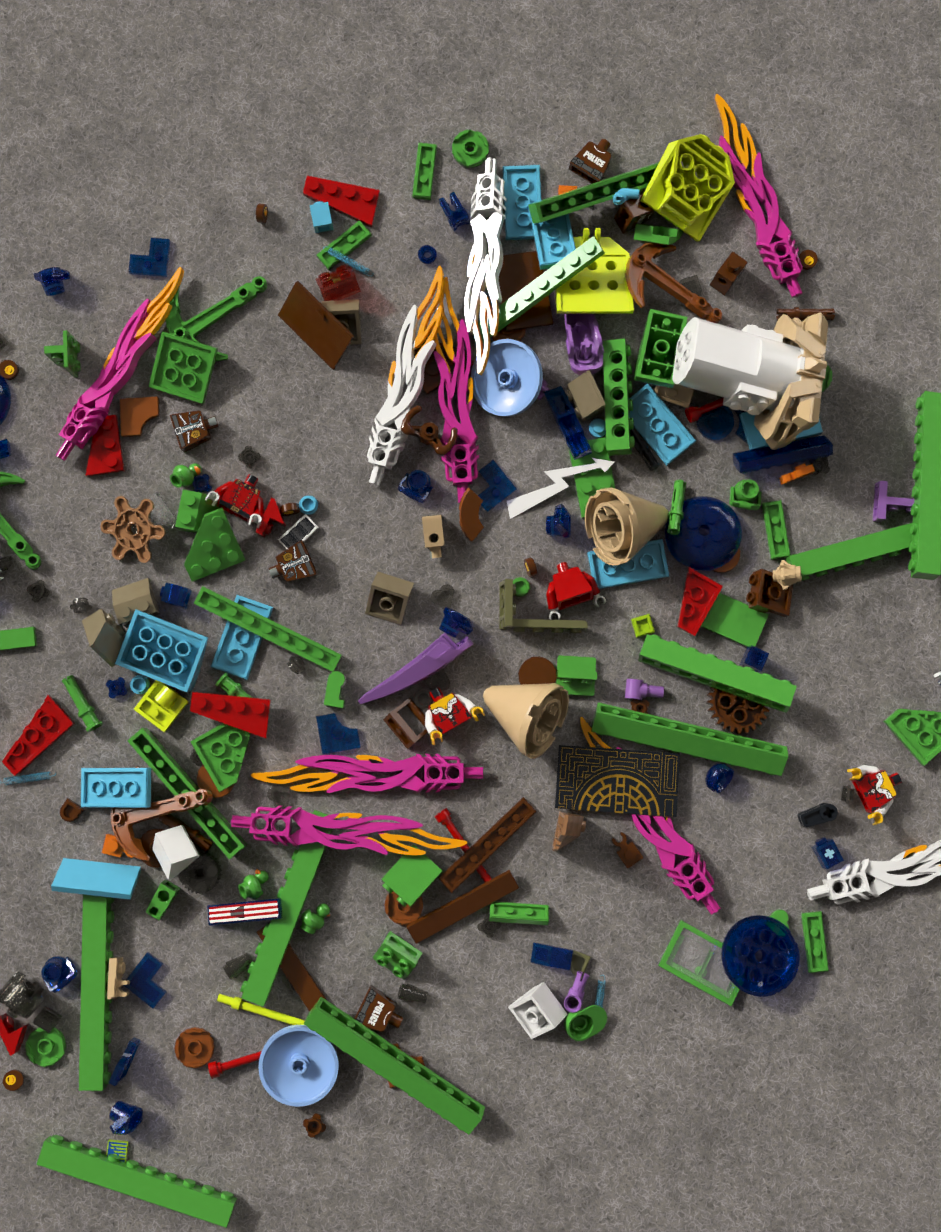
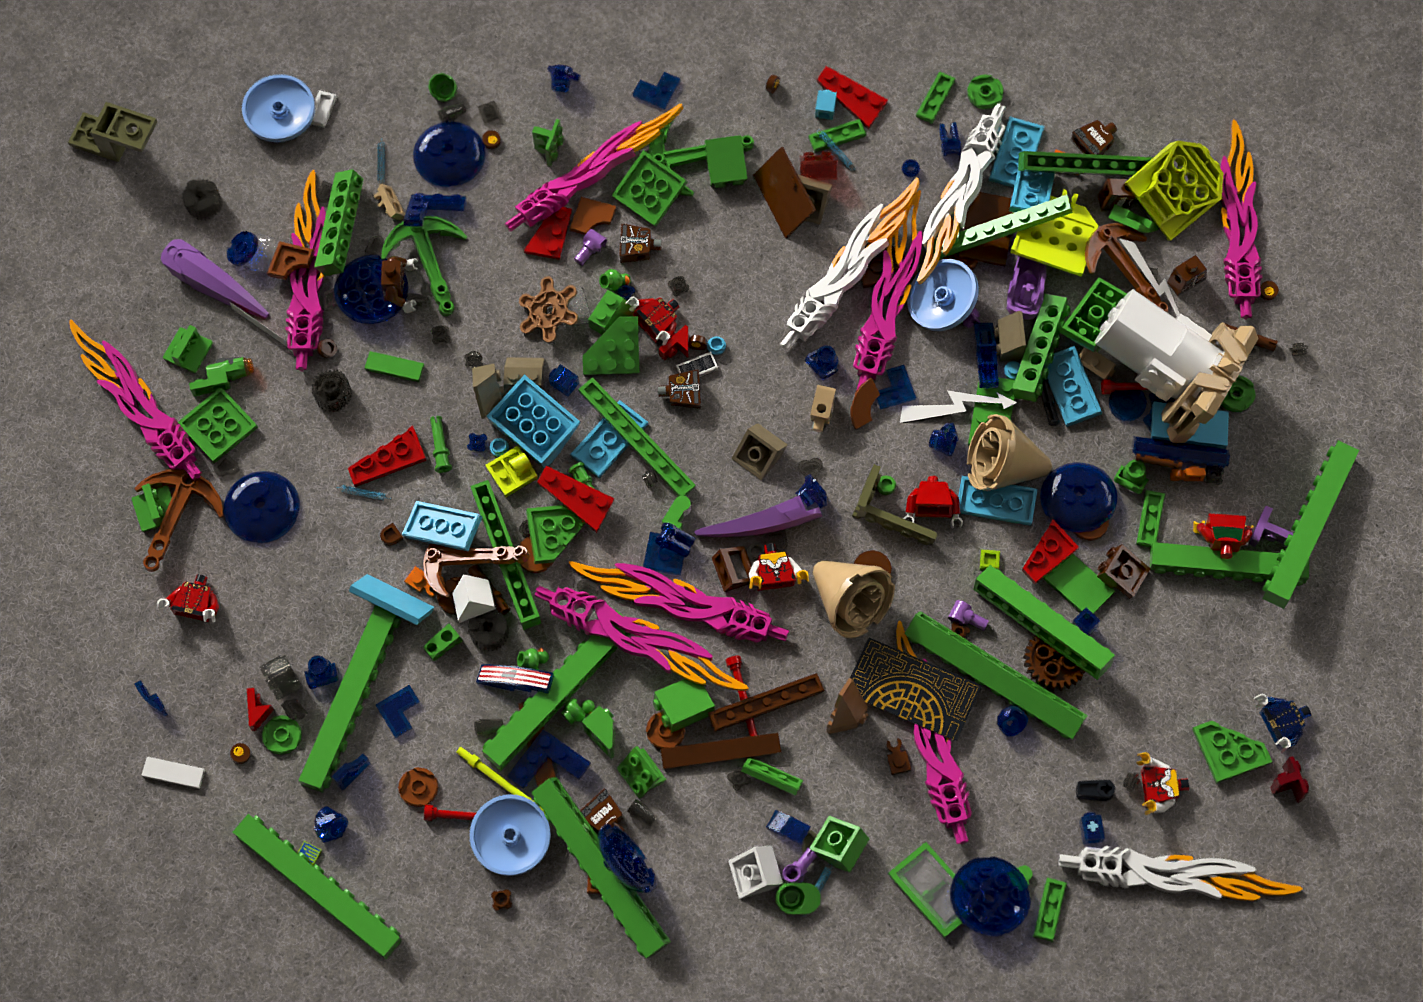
camera: 25 degrees right, 15 degrees down
(115, 981) = (371, 696): tan plate -> none
(149, 444) = (592, 243): none -> medium lavender pin
(247, 312) = (726, 161): none -> bright green brick
(303, 965) = (546, 747): none -> clear blue plate
(335, 719) = (676, 539): none -> clear blue piece
(346, 933) = (601, 729): none -> bright green slope
(417, 1055) = (625, 859): none -> clear blue brick
(422, 433) = (851, 317): reddish brown piece -> none
(530, 567) = (902, 469): reddish brown tile -> none
(577, 674) = (910, 581): bright green bracket -> none
(604, 955) = (839, 843): none -> bright green slope
(625, 194) = (1111, 172): medium azure arm -> none
(676, 513) = (1058, 467): bright green pin -> none
(707, 295) = (1163, 287): none -> white sticker
(765, 474) = (1162, 462): none -> reddish brown piece
(787, 574) = (1143, 556): tan rock -> none
(853, 523) = (1224, 533): none -> red torso
(856, 310) = (1298, 349): none -> clear smoke plate

